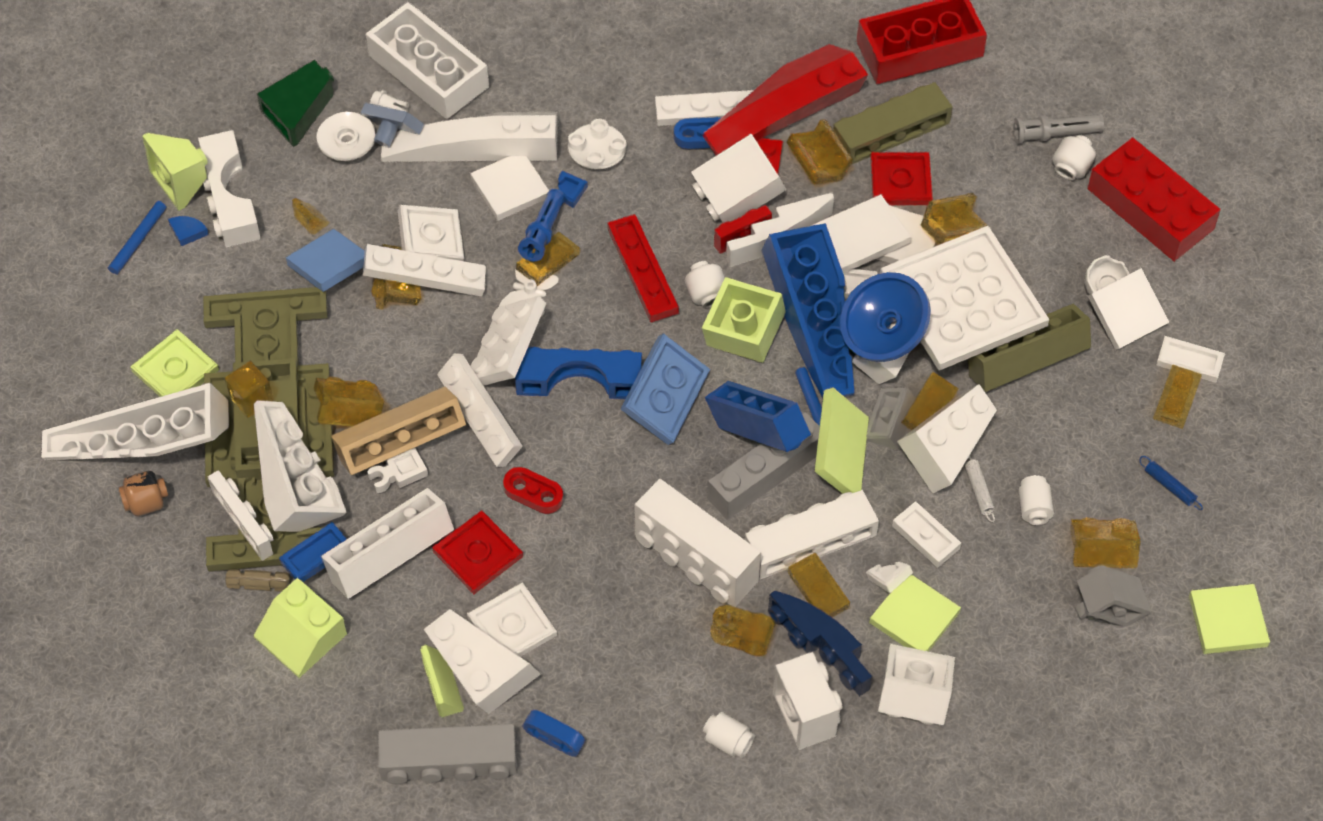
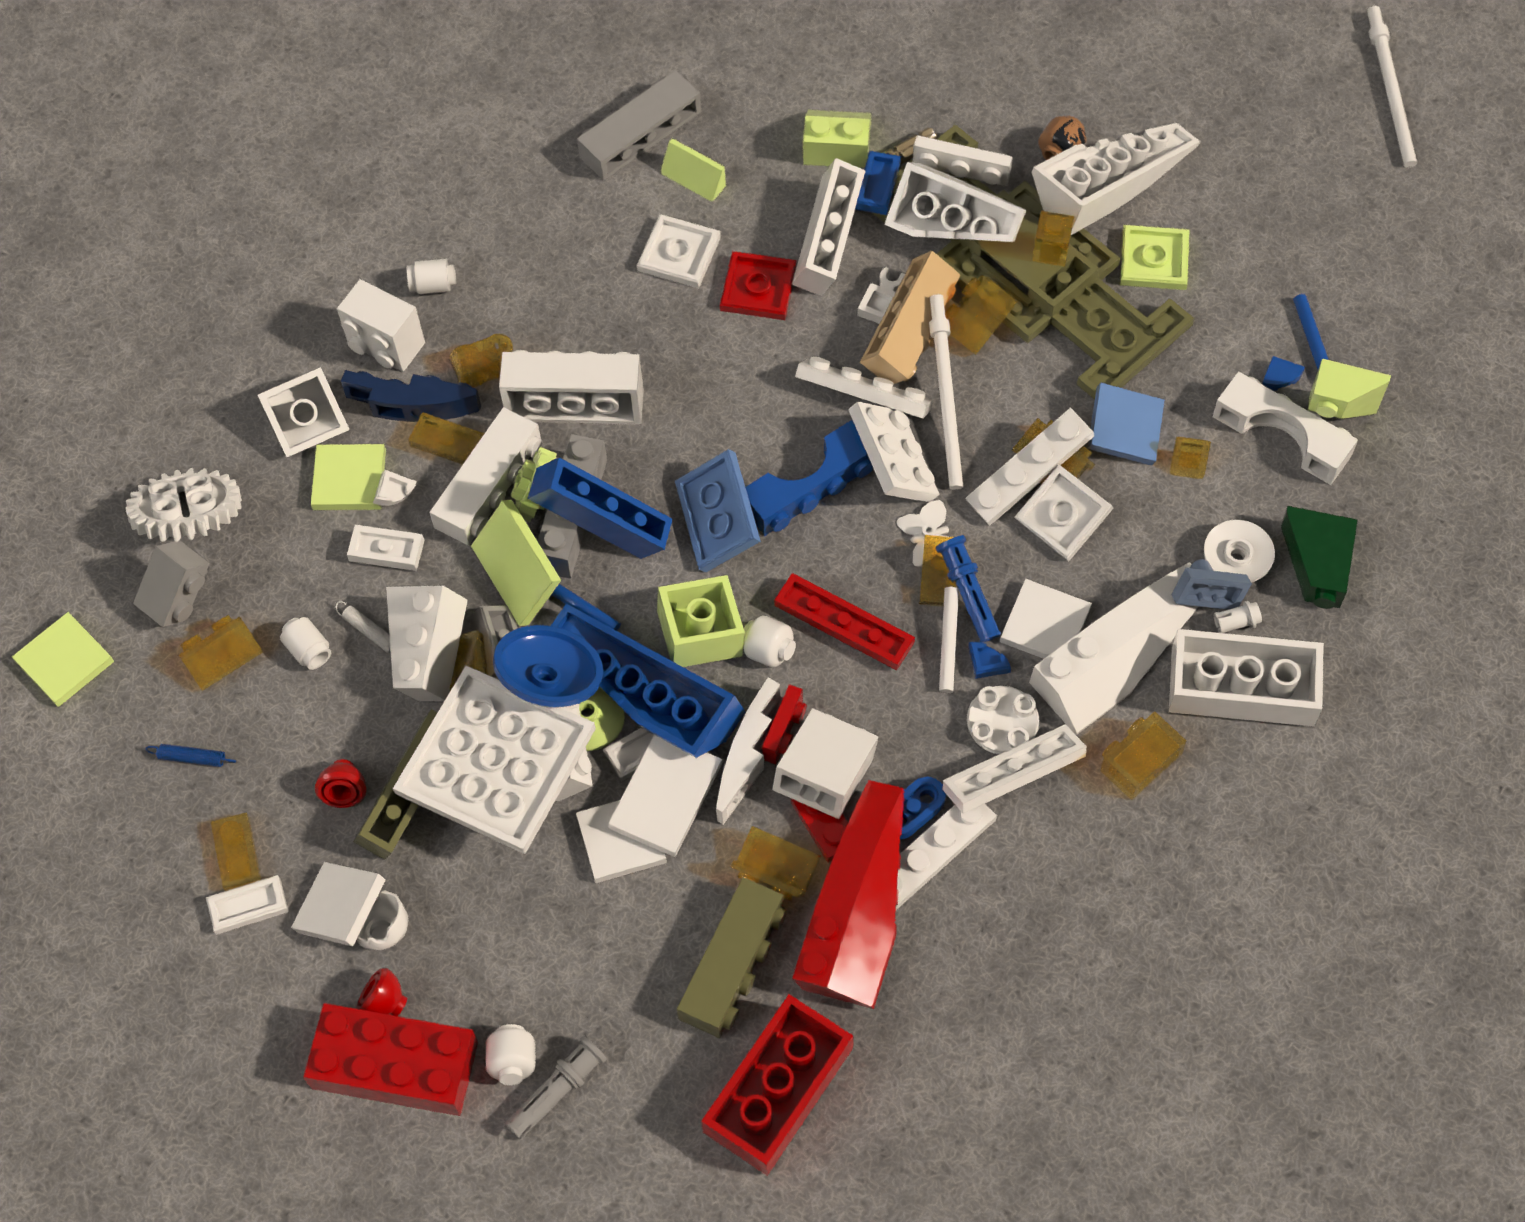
camera: 145 degrees right, 5 degrees up
(392, 396) = (940, 331): none -> white bar
(480, 662) = (674, 190): white wedge -> none
(533, 67) = (1142, 754): none -> clear yellow brick
(534, 491) = (755, 355): red plate -> none
(554, 733) = (571, 190): blue beam -> none
(585, 210) = (948, 645): none -> white bar
(621, 106) = (1014, 768): none -> white plate
(784, 486) = (524, 481): none -> yellowish green gear
(901, 177) = (676, 907): red tile -> none
(951, 217) = (576, 875): clear yellow bracket -> none
(1074, 387) = (341, 785): none -> red brick
(1095, 665) = (158, 508): none -> white gear
(1137, 240) = (382, 994): none -> red brick

